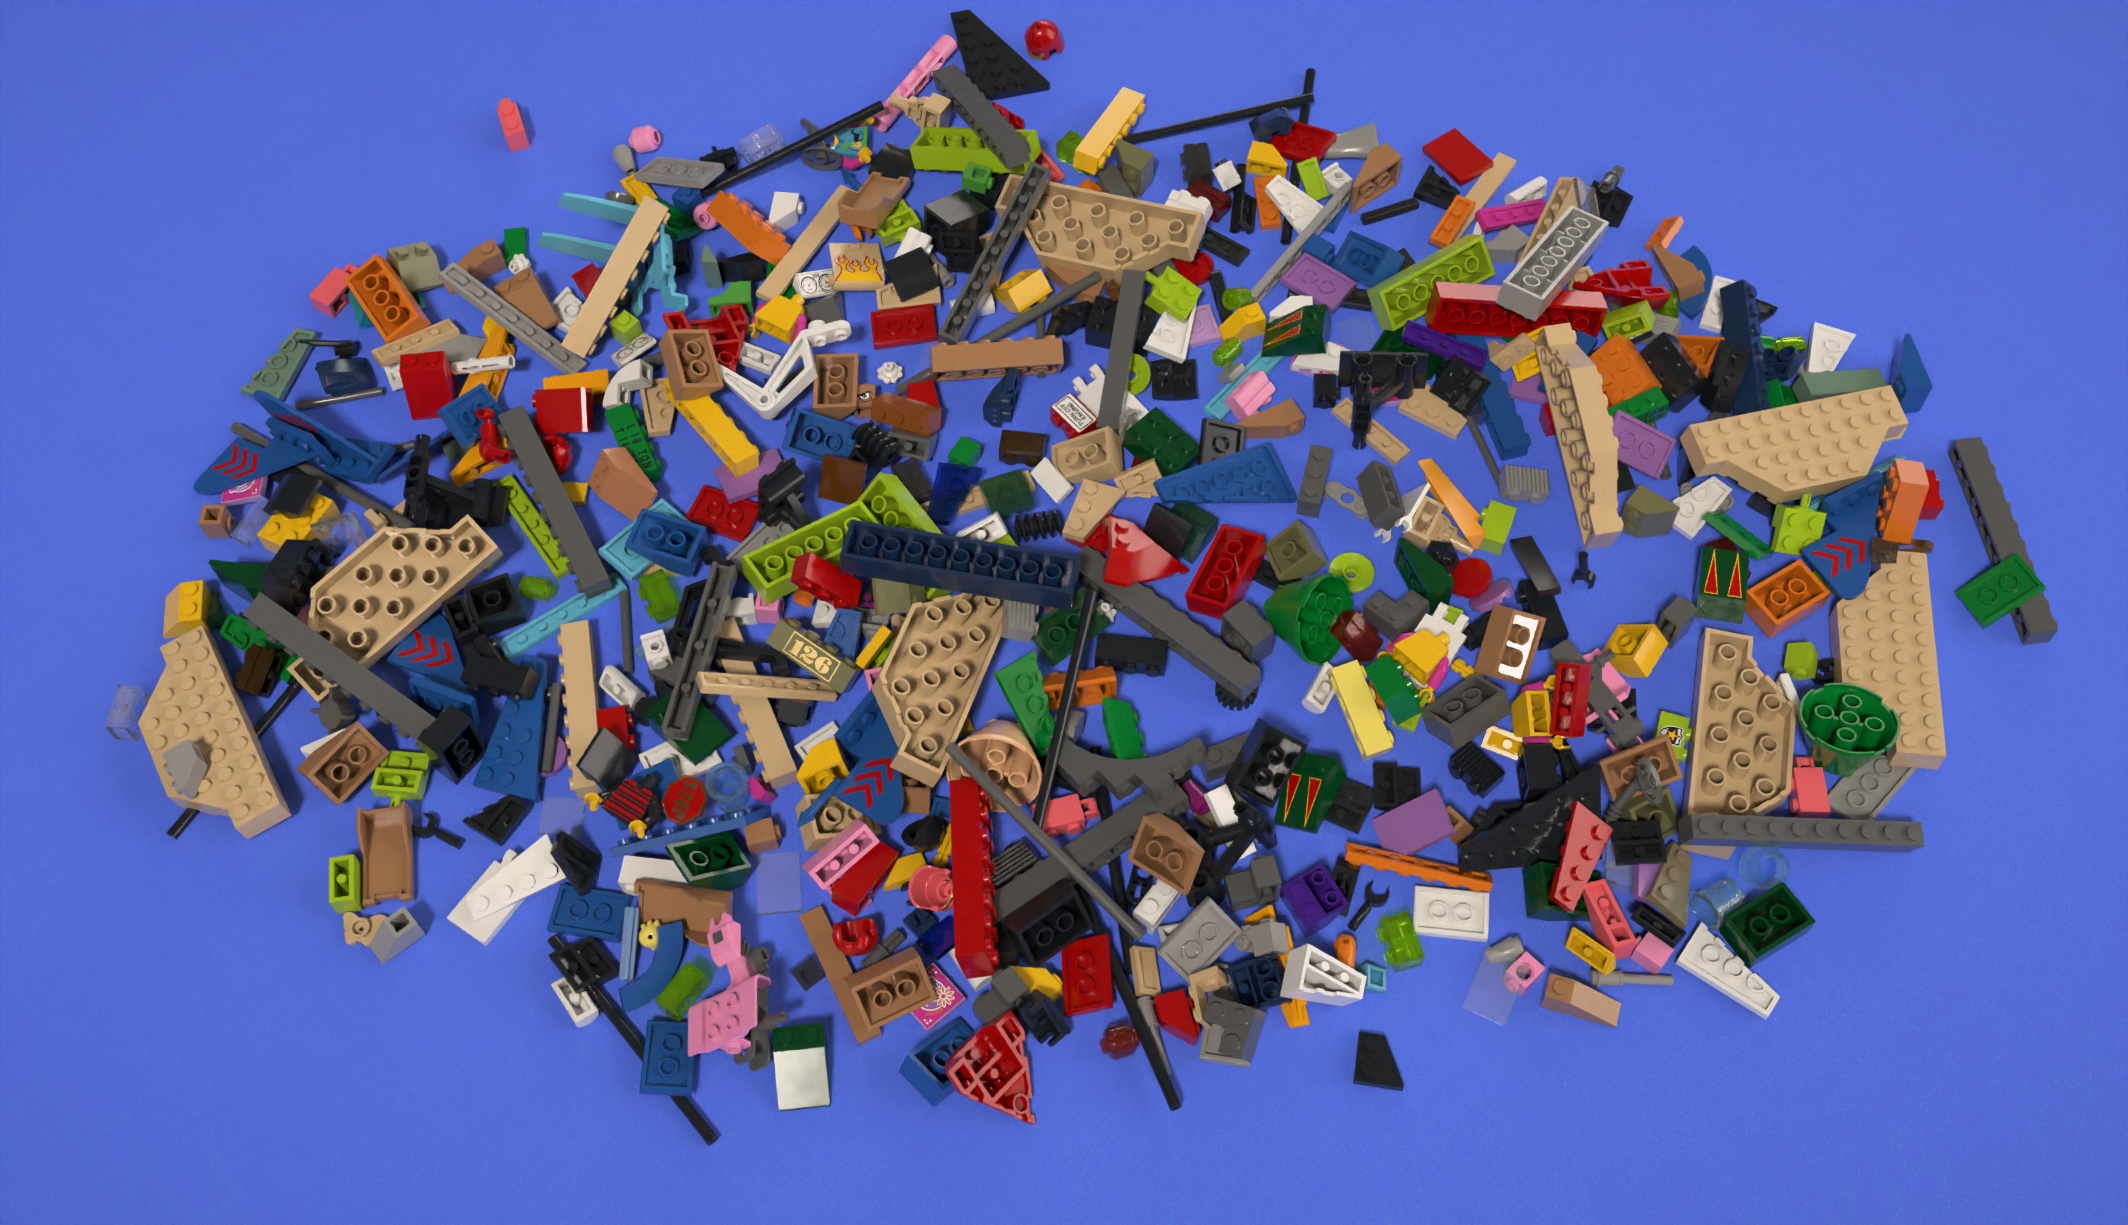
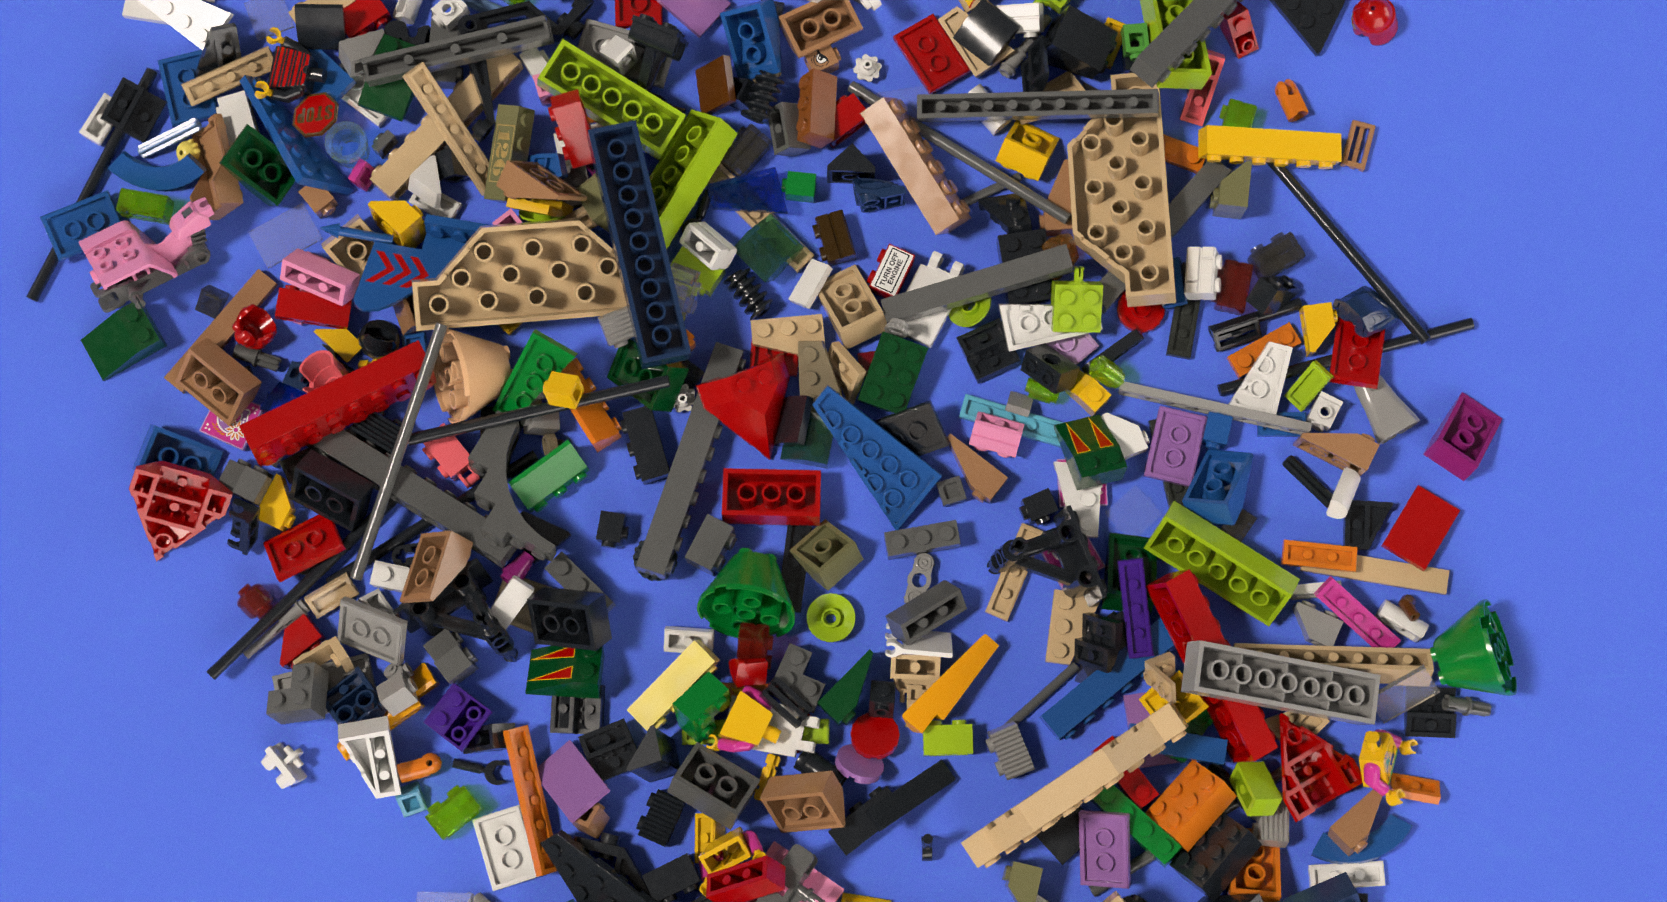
camera: 65 degrees right, 20 degrees up
(601, 867) = (228, 76): none -> tan tile
(648, 743) = (358, 47): none -> light grey slope
(771, 530) = (618, 54): none -> white slope
(803, 733) = (425, 182): none -> white slope
(859, 632) = (534, 181): none -> medium nougat slope
(969, 407) = (849, 165): none -> black slope
(1059, 674) = (563, 390): none -> yellow brick
(1076, 112) = (1290, 100): none -> orange piece
(1094, 730) = (550, 442): none -> dark tan tile
(1131, 499) = (815, 369): none -> dark tan wing
(1136, 83) = (1352, 164): none -> medium nougat tile
(1194, 711) = (612, 529): none -> black brick
(1214, 335) = (1050, 368): none -> black brick
(1280, 1081) = (287, 762): none -> white hips
(1282, 446) = (951, 491): none -> dark grey plate
(1375, 642) = (748, 671): none -> red tile
(1376, 1063) = (331, 833): black wing -> none
(1399, 106) = (1463, 437): none -> magenta slope
(1410, 188) = (1343, 494): none -> white brick
(1418, 617) = (792, 696): none -> black tile
(1423, 745) = (655, 757): none -> black slope
(1519, 181) = (1407, 604): none -> reddish brown arm
(1576, 145) = (1475, 653): none -> green cone
(1638, 241) = (1378, 761): none -> torso
(1671, 307) = (1314, 824): clear neon green brick -> none

